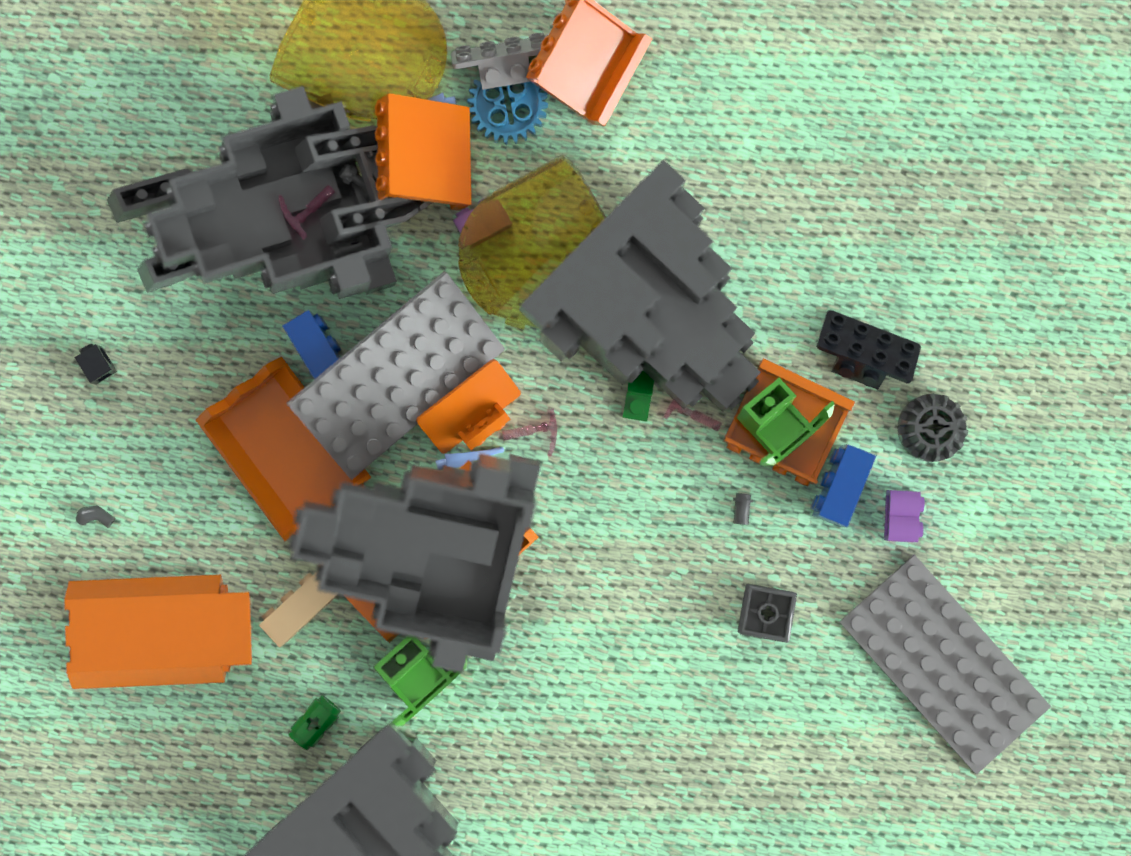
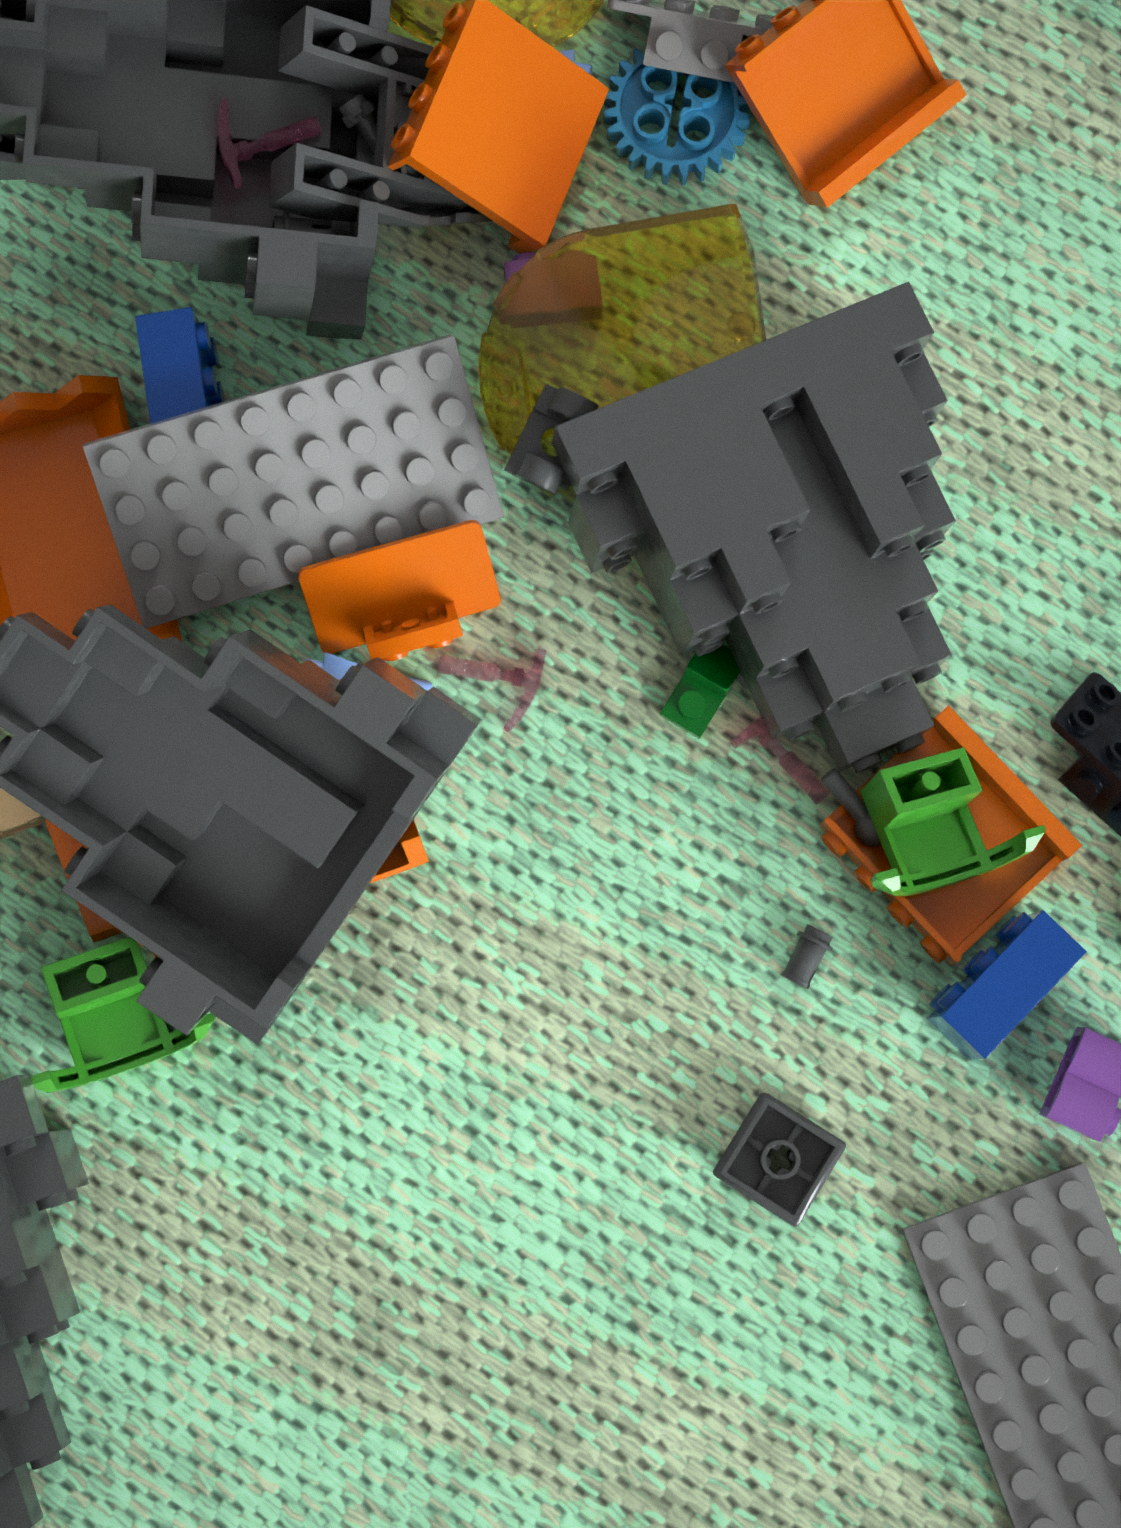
camera: 25 degrees right, 5 degrees down
(506, 318) = (528, 458): none -> dark grey brick
(735, 425) = (854, 806): none -> dark grey bar

